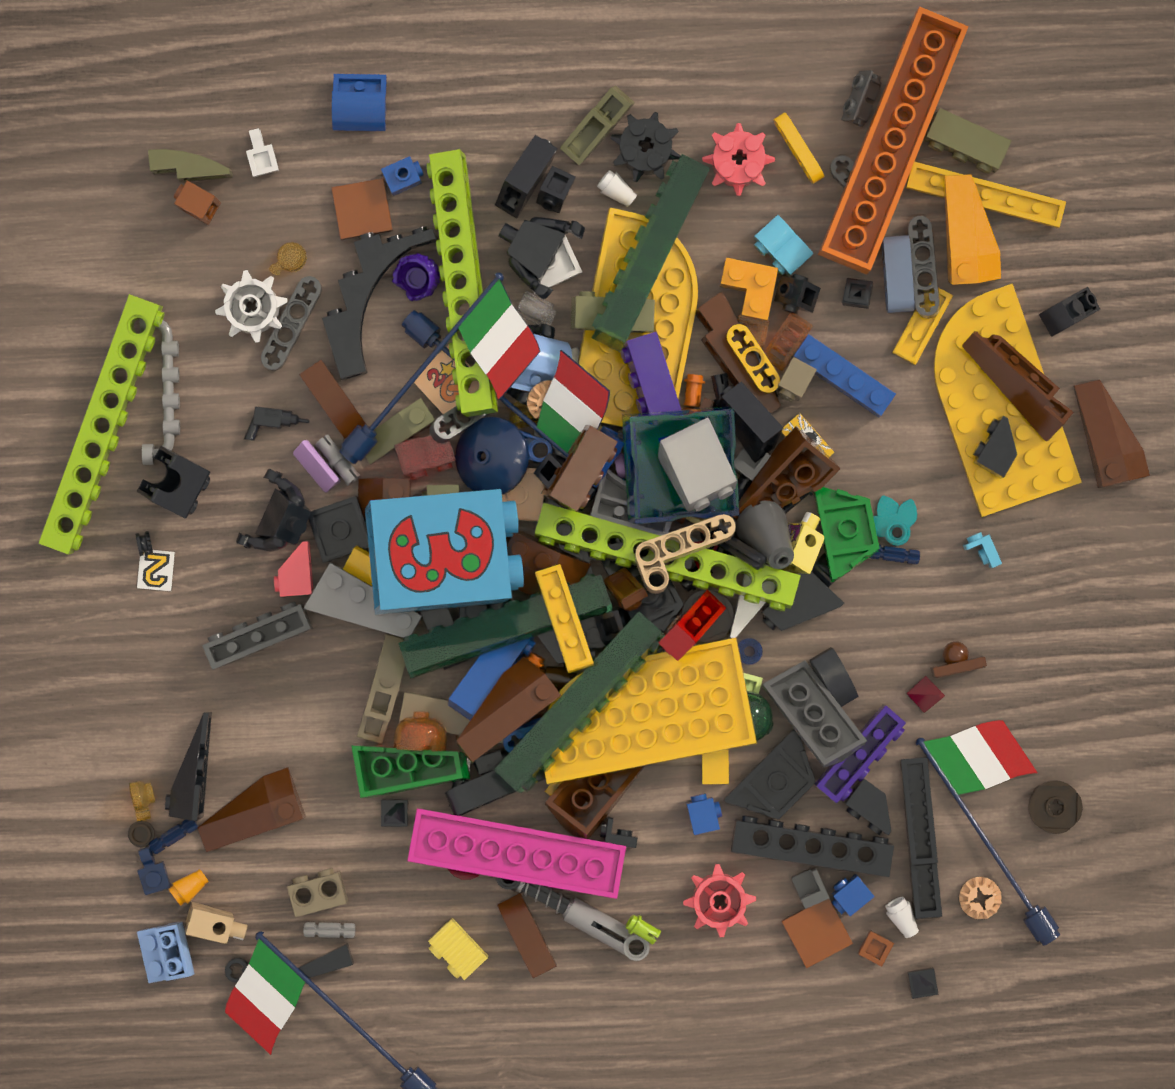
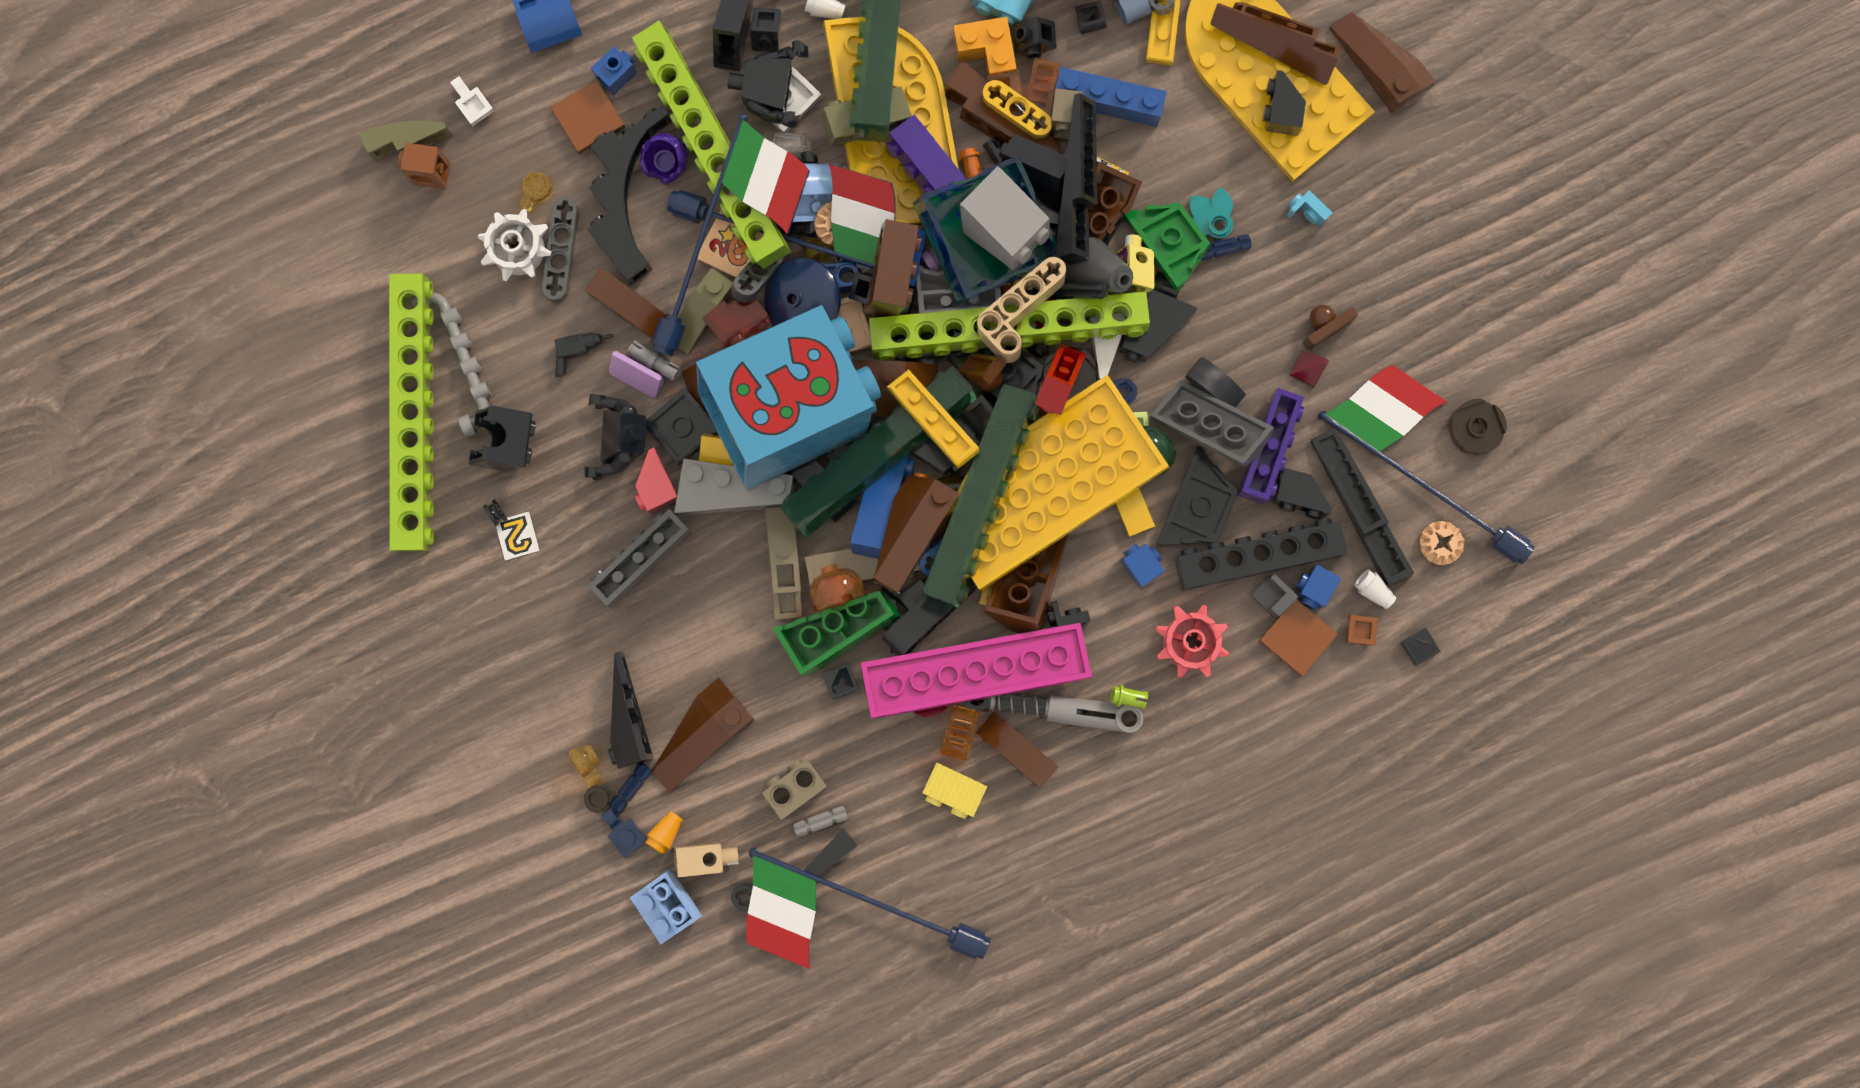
camera: 20 degrees left, 5 degrees down
(492, 891) = (963, 716): none -> clear orange slope
(779, 453) = (1079, 183): none -> black slope

